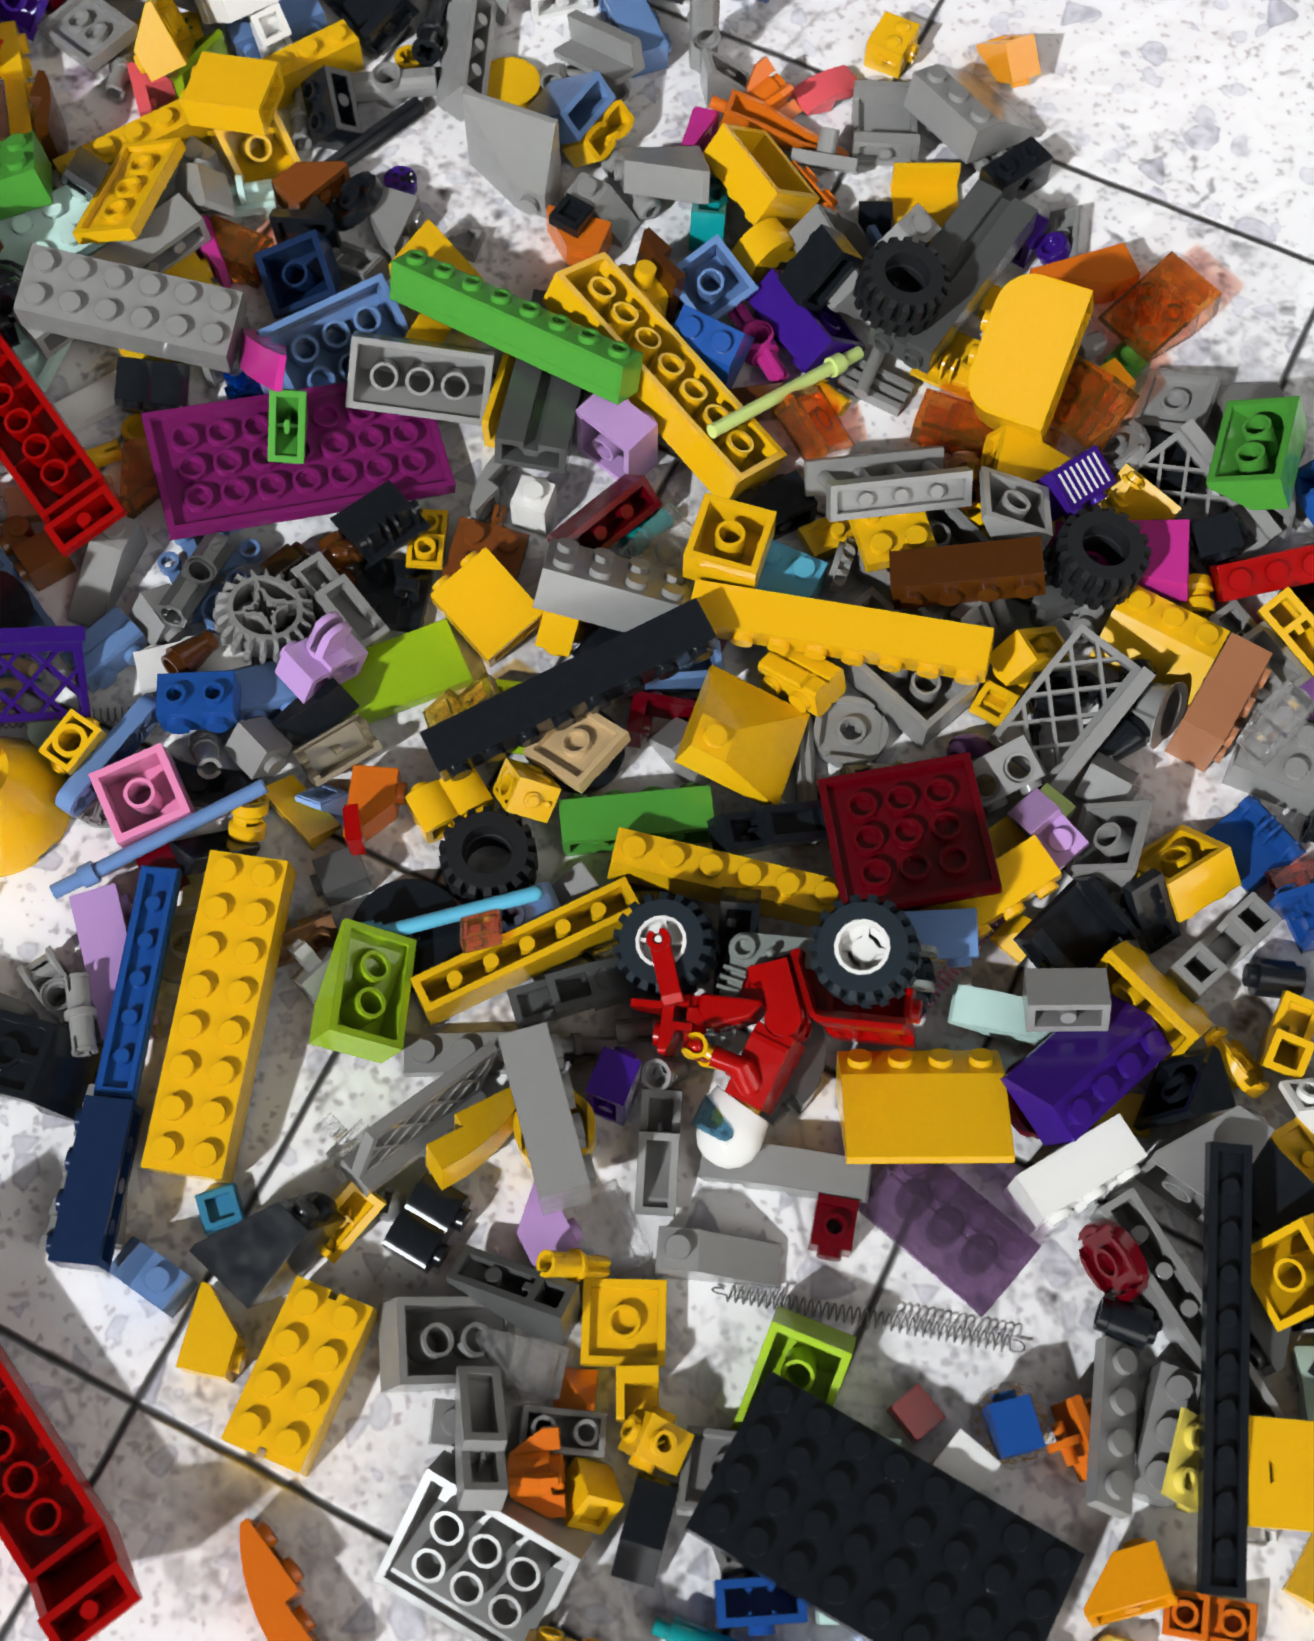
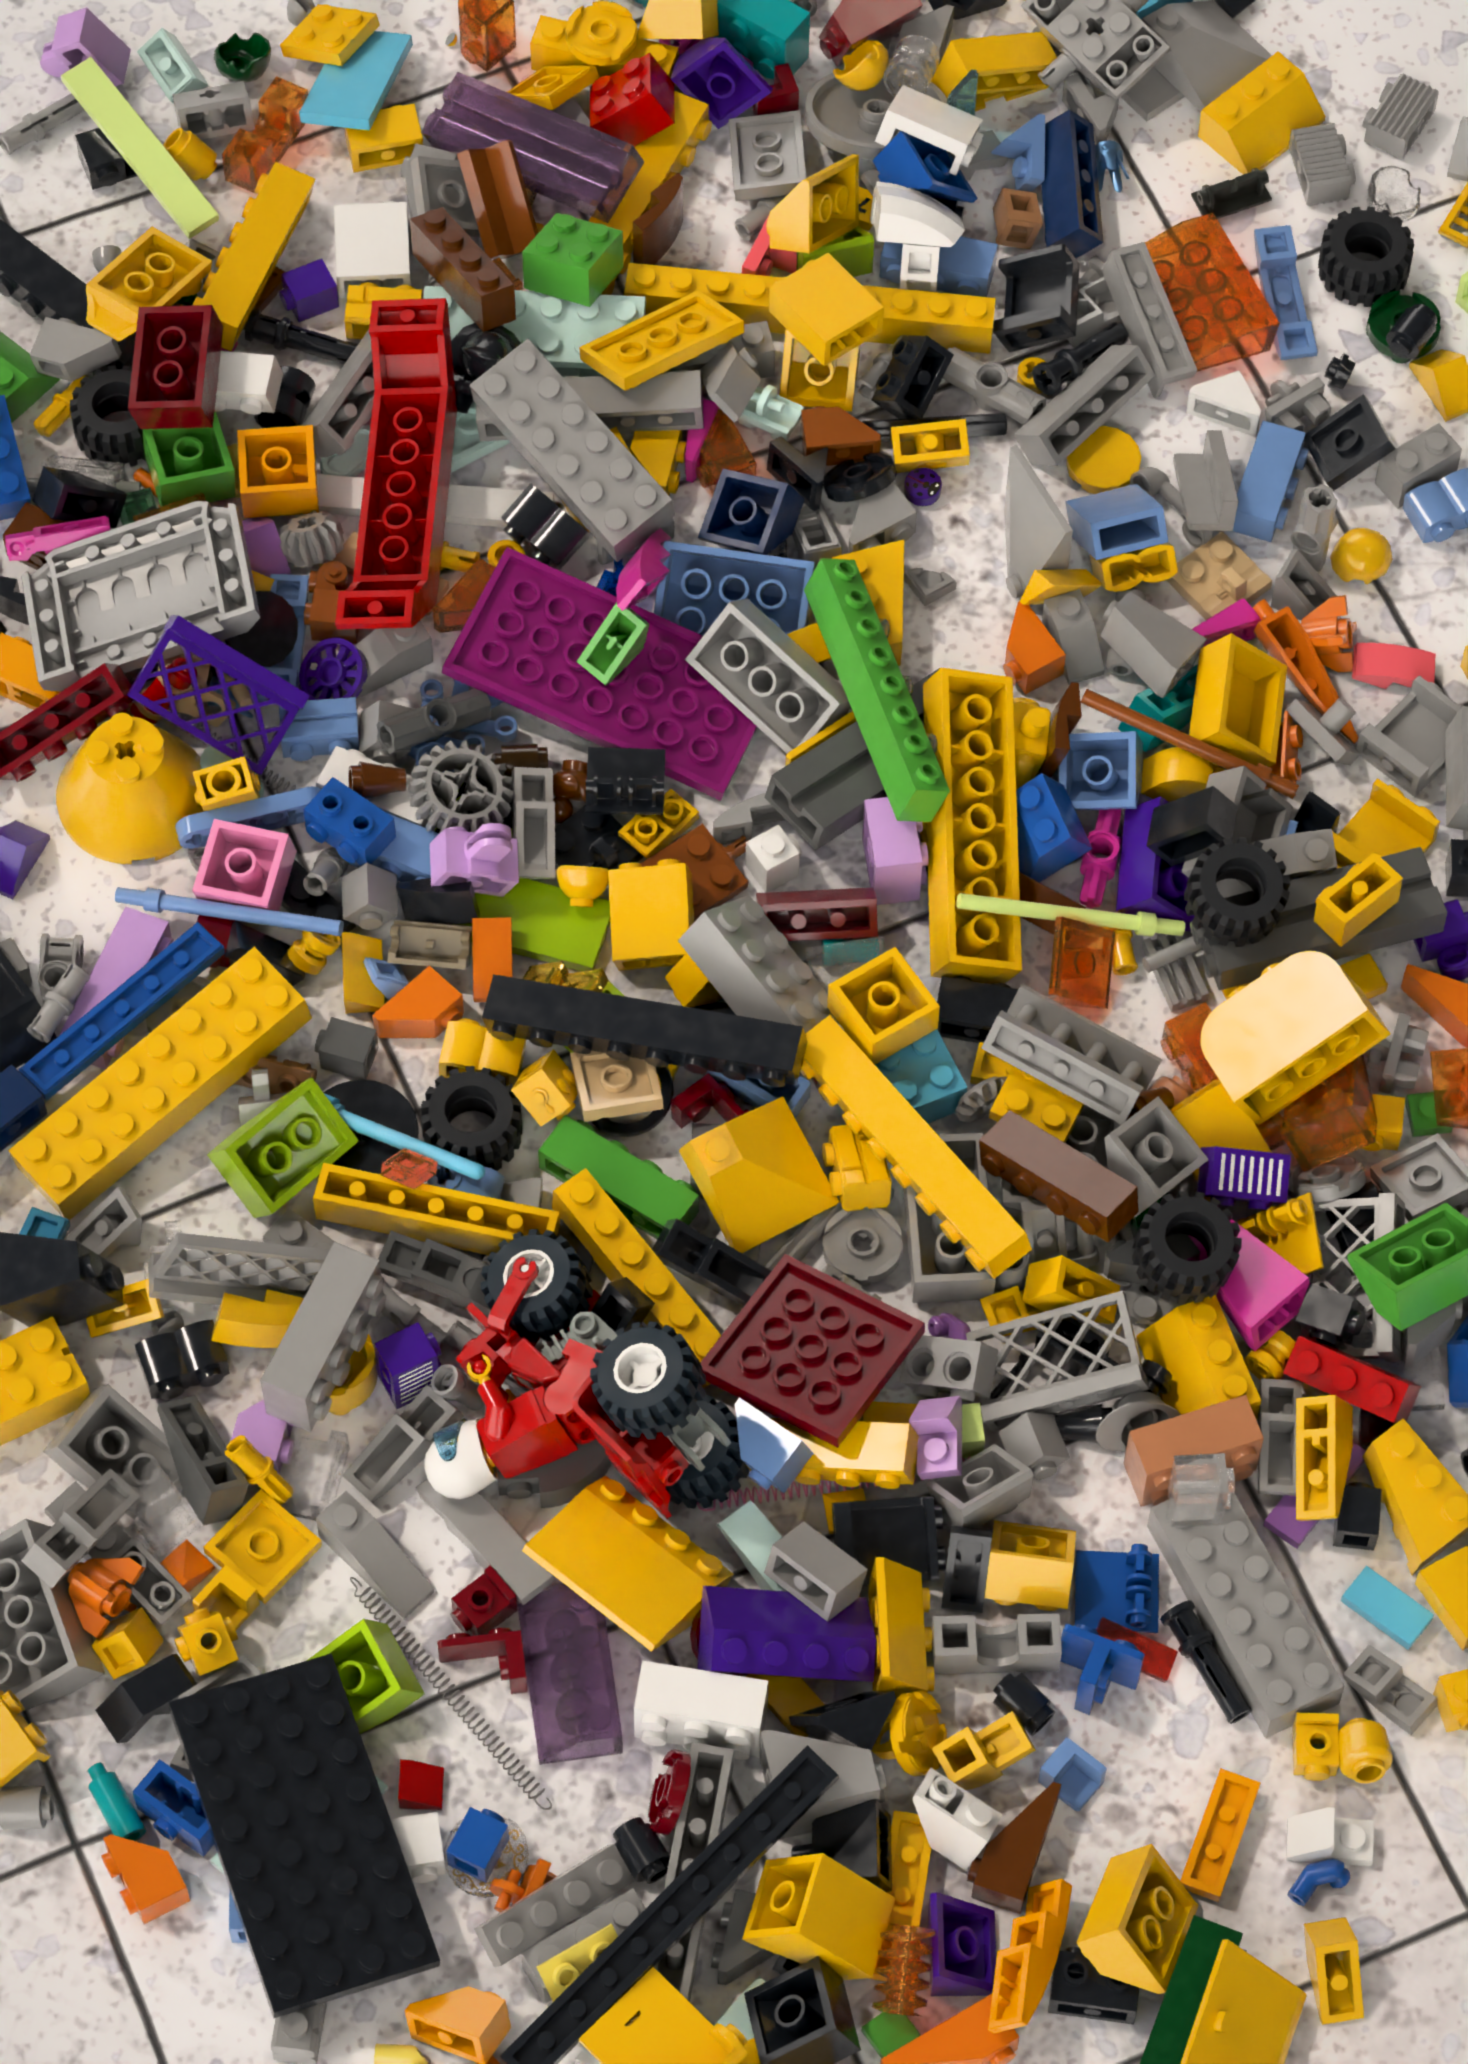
camera: 40 degrees right, 5 degrees down
(79, 600) = (333, 670): none -> dark purple wheel
(85, 173) = (637, 298): black slope -> none
(275, 1165) = (110, 1225): none -> light grey slope
(354, 829) = (381, 1015): red tile -> none
(386, 145) = (930, 445): none -> yellow brick
(393, 725) = (490, 953): none -> orange slope
(414, 620) = (582, 883): none -> yellow brick
(562, 177) = (1055, 582): none -> yellow slope
(572, 215) = (1033, 624): black tile -> none
(659, 111) = (1218, 577): none -> tan hinge
(739, 35) = (1361, 555): none -> yellow hair
(751, 219) = (1186, 741): none -> dark orange bar
(898, 1254) = (497, 1642): none -> dark red bracket
(984, 235) = (1357, 899): none -> yellow brick

